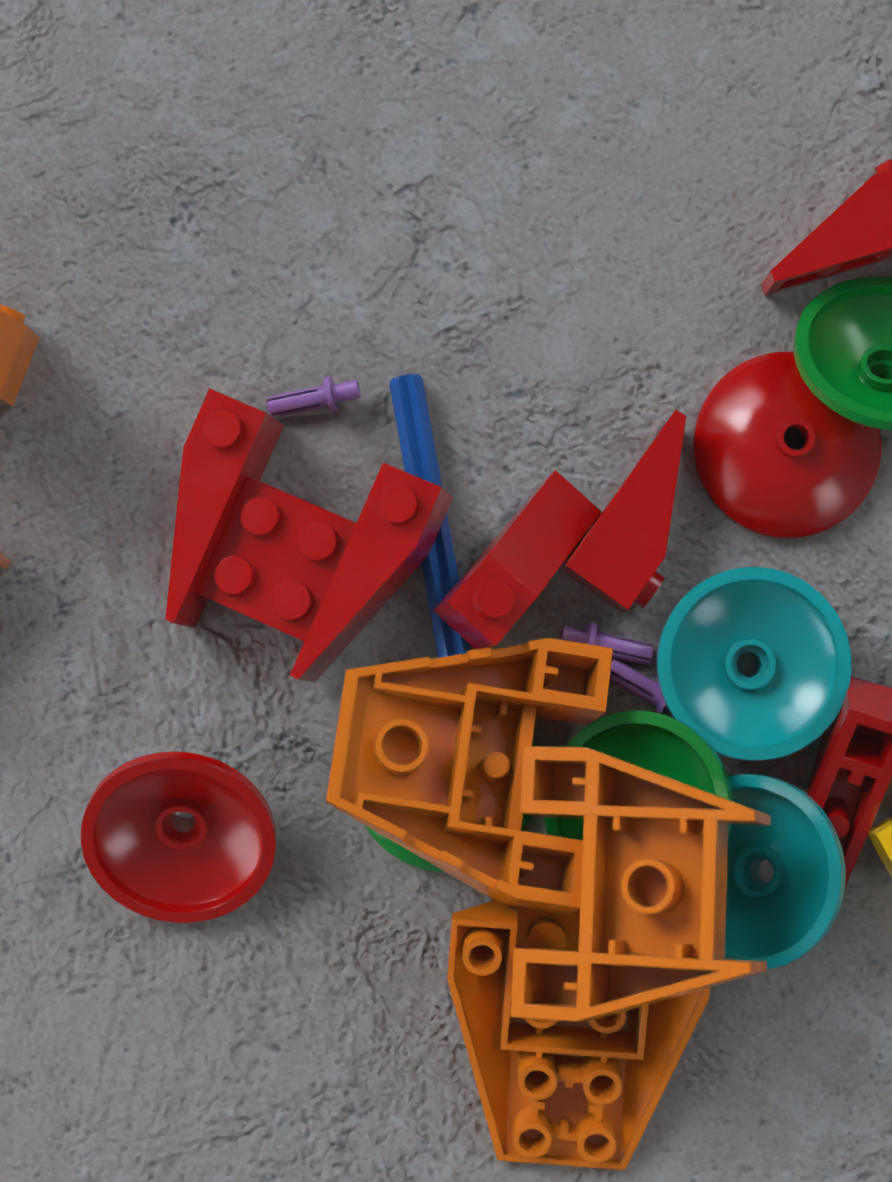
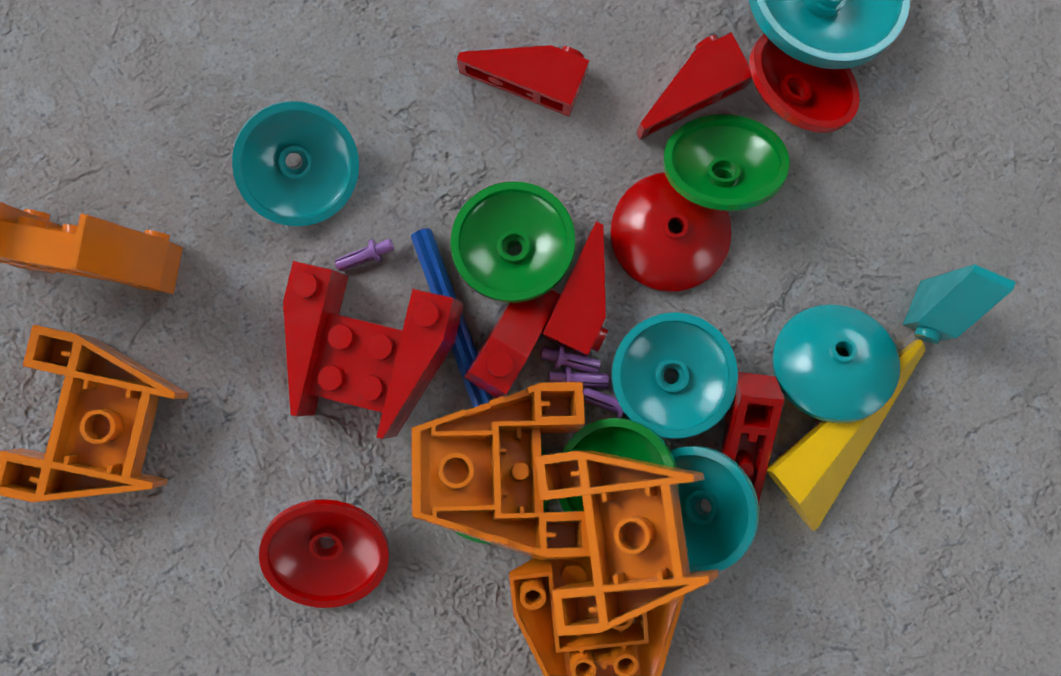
camera: 15 degrees left, 0 degrees up
(263, 275) = (301, 192): none -> teal dish
(554, 380) = (507, 217): none -> green dish
(585, 606) = (575, 361): none -> medium lavender piece
(620, 166) = (535, 73): none -> red slope

